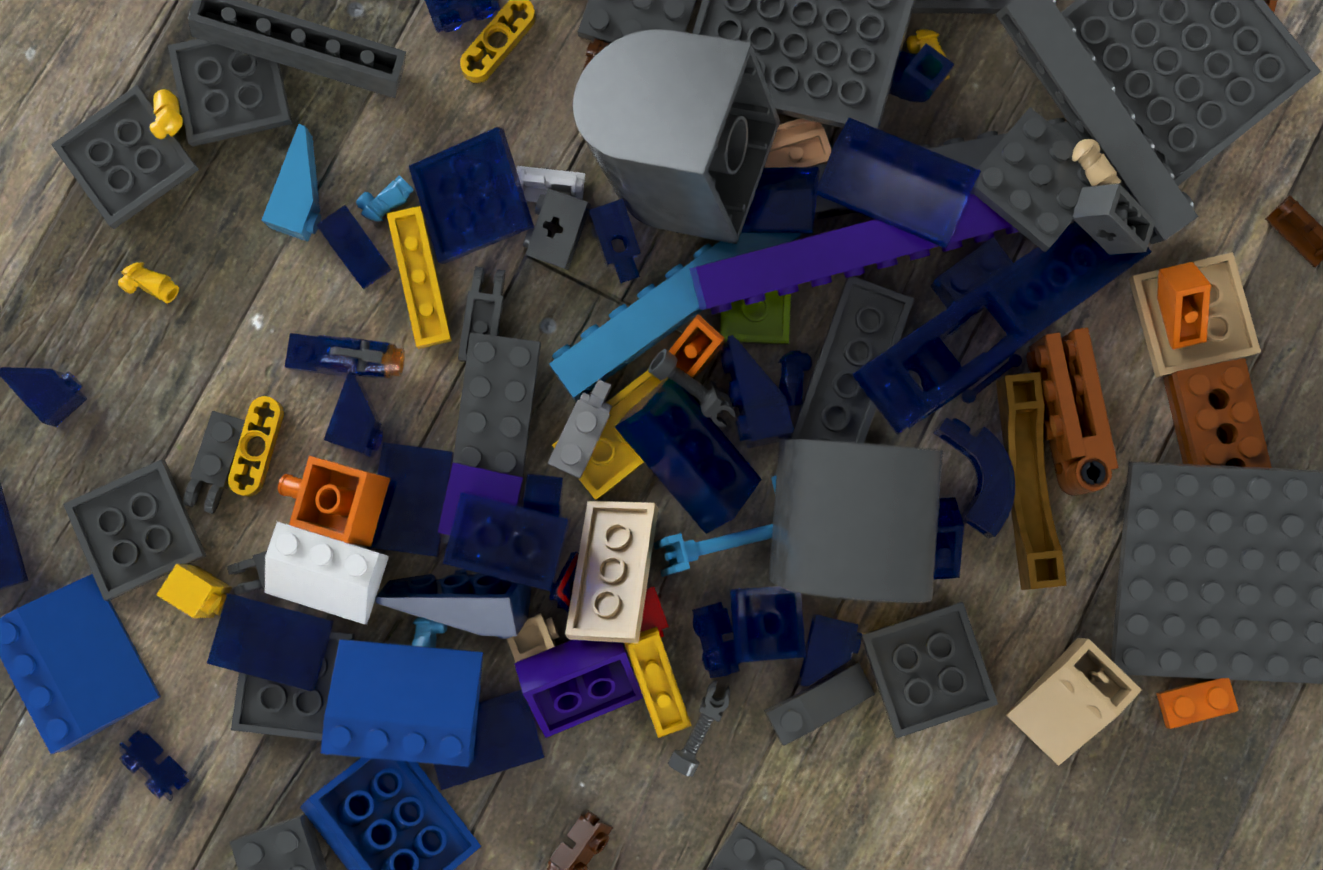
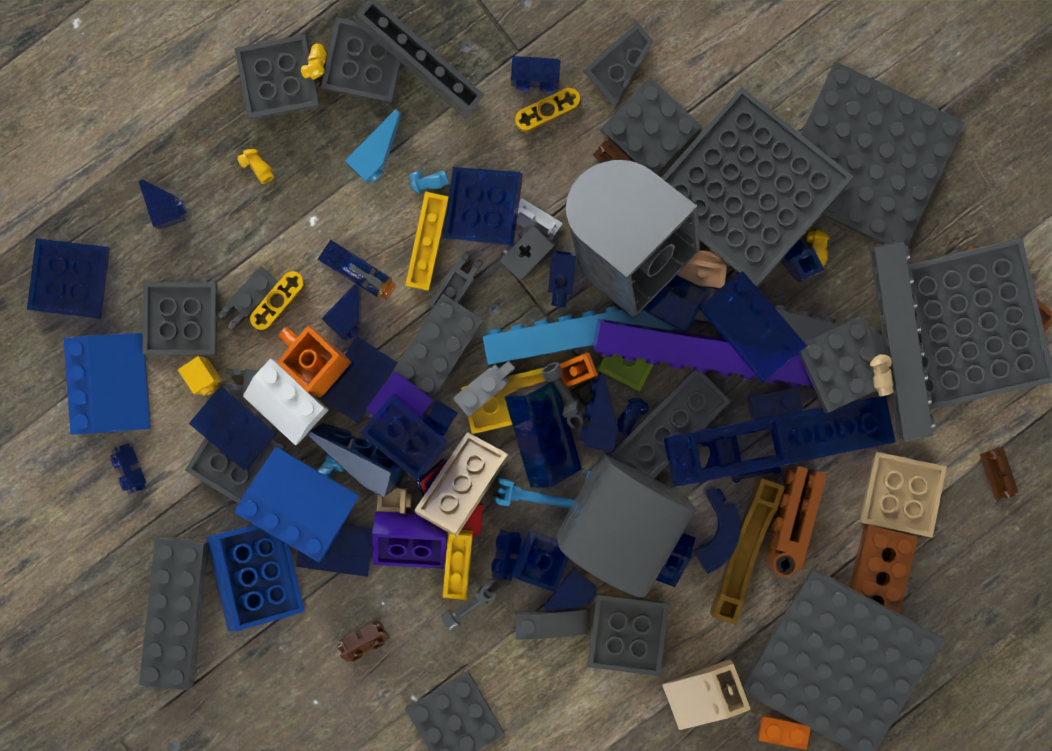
camera: 25 degrees right, 5 degrees up
(354, 247) = (395, 203): clear blue slope -> none
(1114, 219) = (877, 413): dark grey brick -> none
(1184, 304) = (897, 485): orange slope -> none

